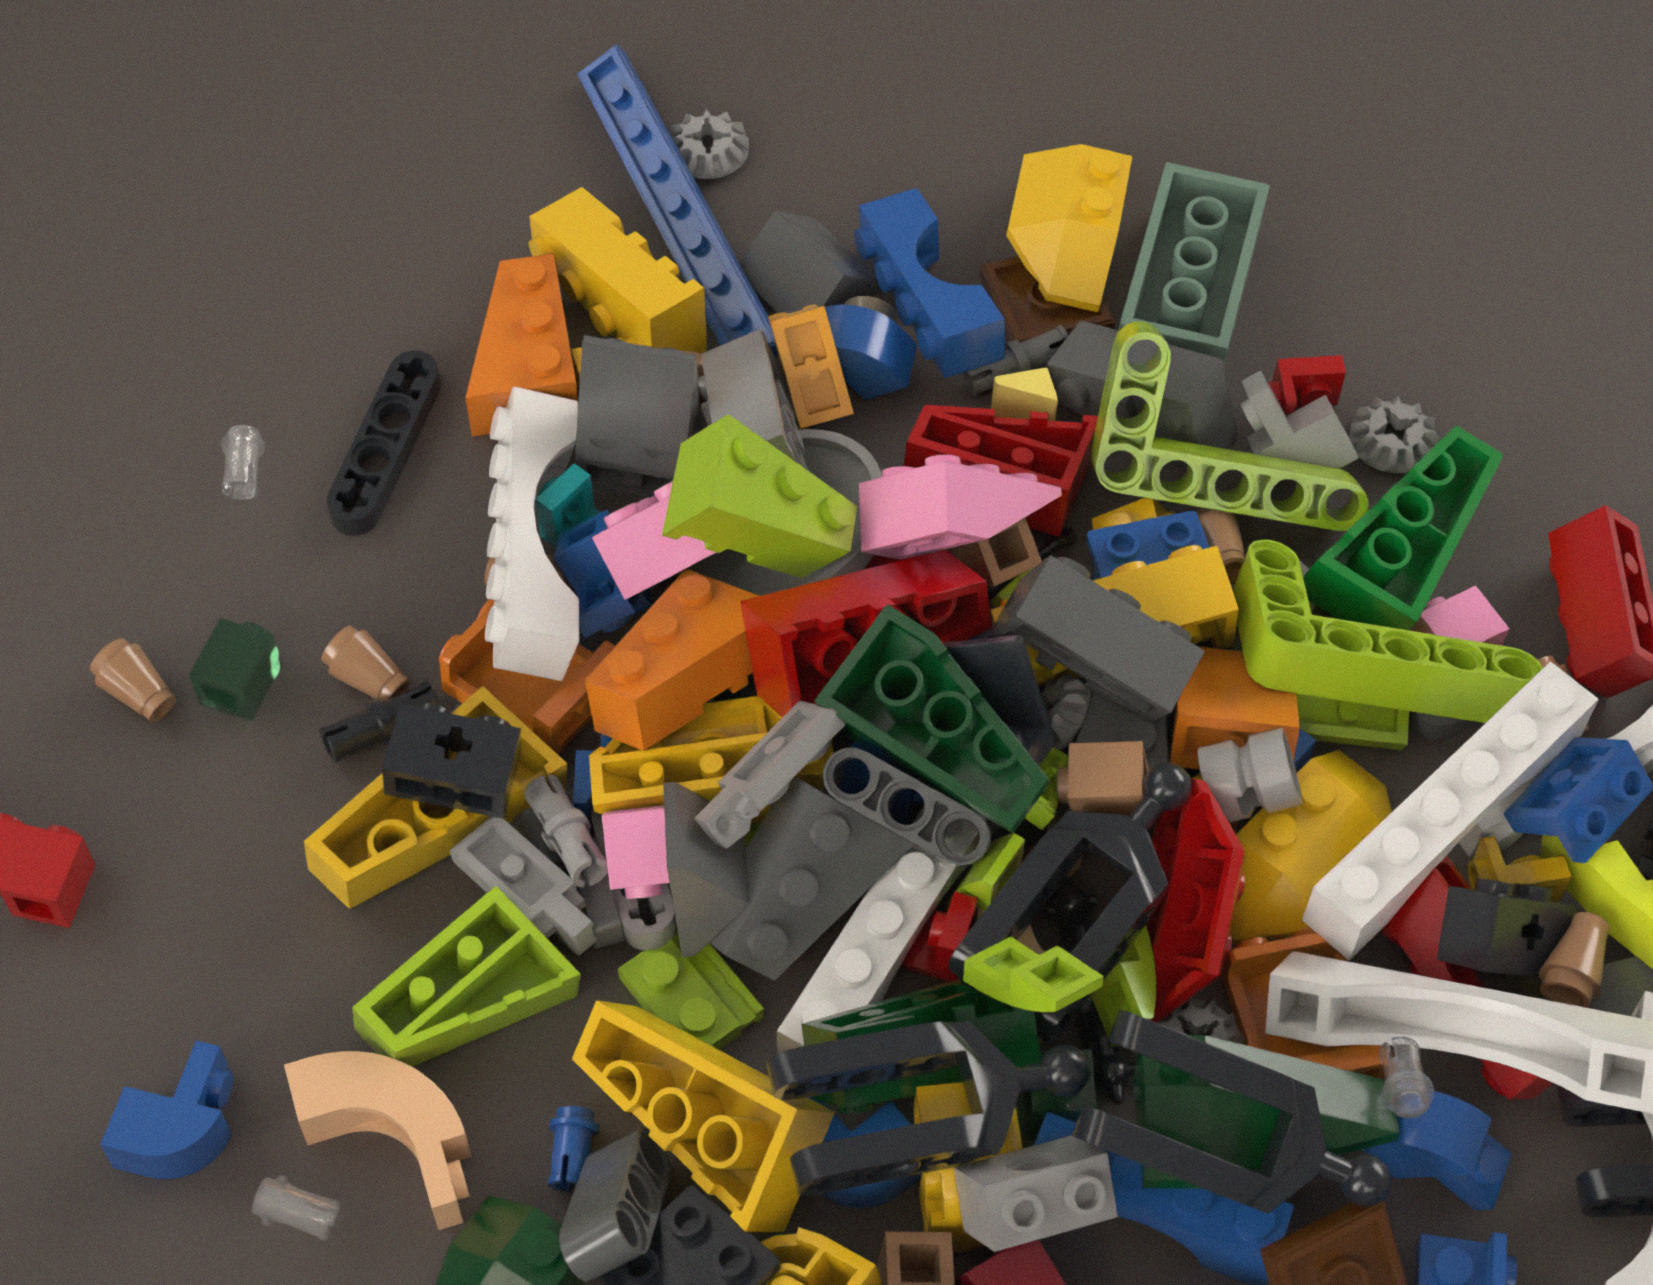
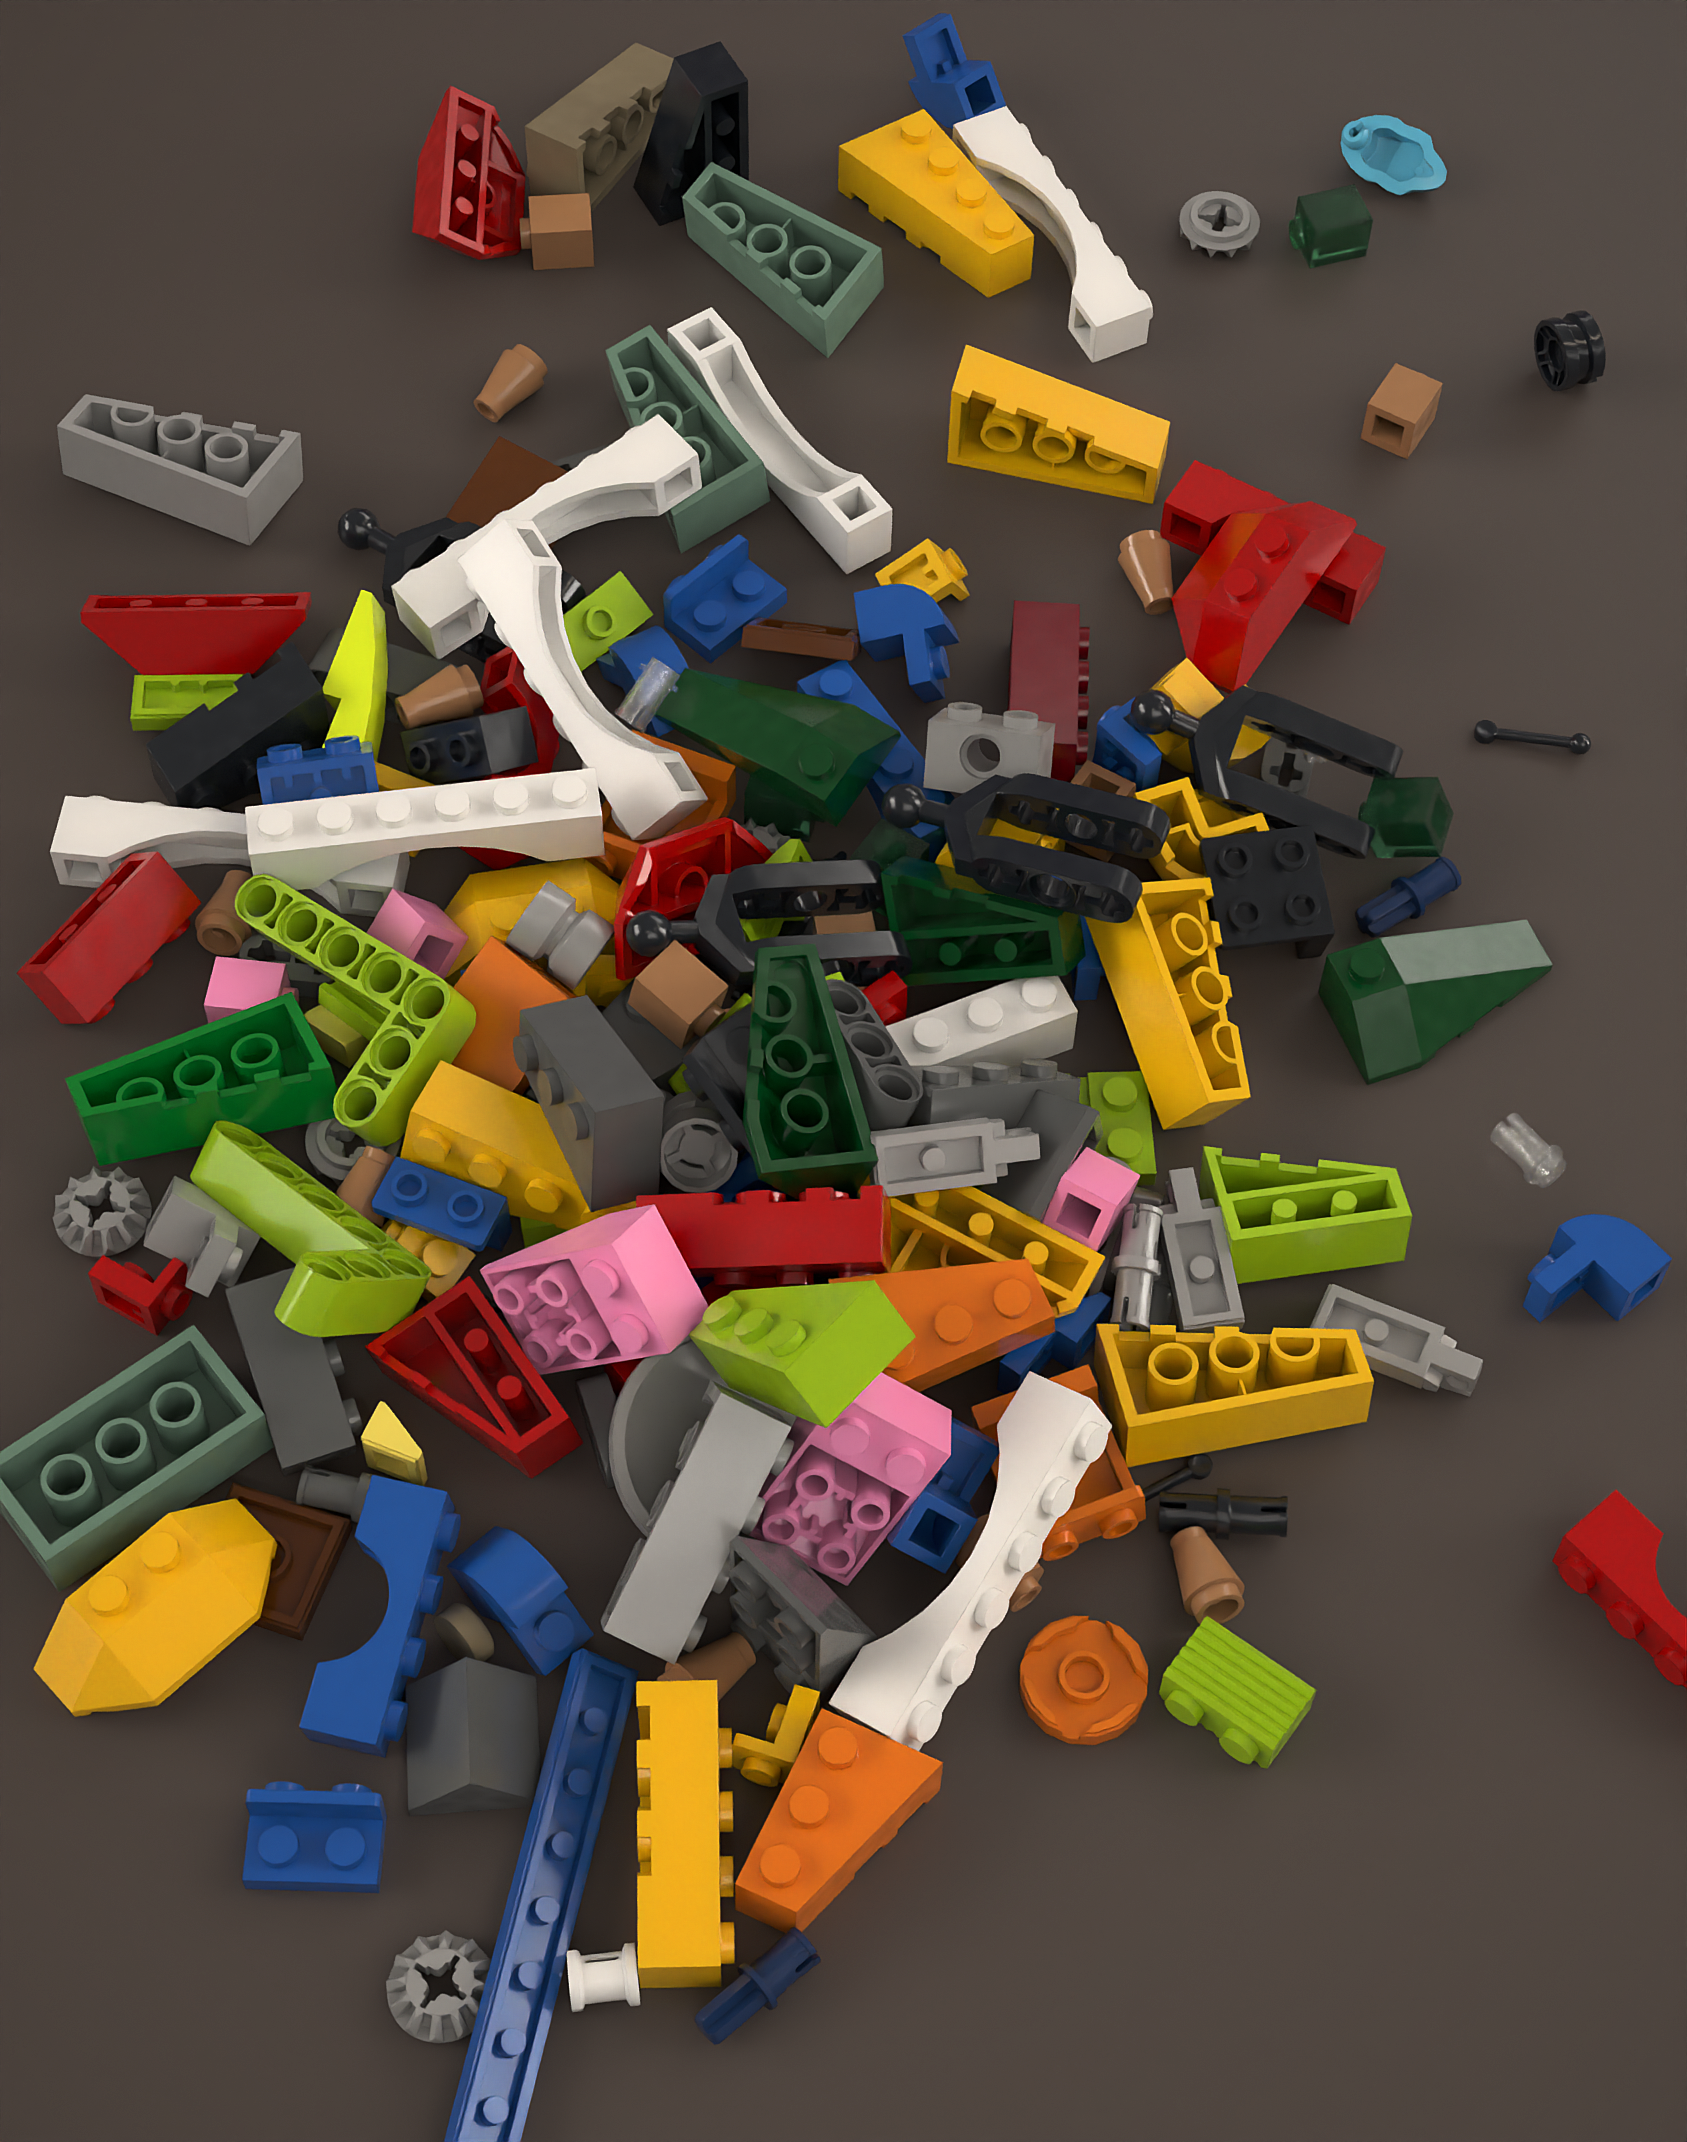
camera: 145 degrees left, 0 degrees up
(132, 679) = (1433, 1704): medium nougat cone -> none
(236, 668) = (1330, 1644): clear green brick -> none
(242, 450) = (1187, 1904): clear pin -> none
(290, 594) = (1235, 1694): none -> lime brick
(323, 943) = (1400, 1342): none -> light grey hinge
(378, 440) = (1030, 1820): black beam -> none
(383, 1095) = (1446, 1204): light nougat arch -> none
(414, 555) = (1083, 1680): none -> orange tile
(420, 766) = (1207, 1350): black brick -> none
(504, 241) = (757, 1986): none -> dark blue axle
(565, 503) = (908, 1590): teal bracket -> none
(571, 1145) = (1274, 1075): blue pin -> none
(615, 1205) = (1291, 964): dark grey beam -> none
(620, 182) = (603, 1977): none -> white bush
(810, 365) = (584, 1574): light orange hinge -> none
(857, 168) = (314, 1838): none -> blue bracket
(1030, 980) = (876, 869): lime slope -> none
(1295, 1147) = (824, 684): black piece -> none
(1382, 753) = (418, 931): none -> bright pink brick
(1545, 1183) = (603, 619): none -> lime plate

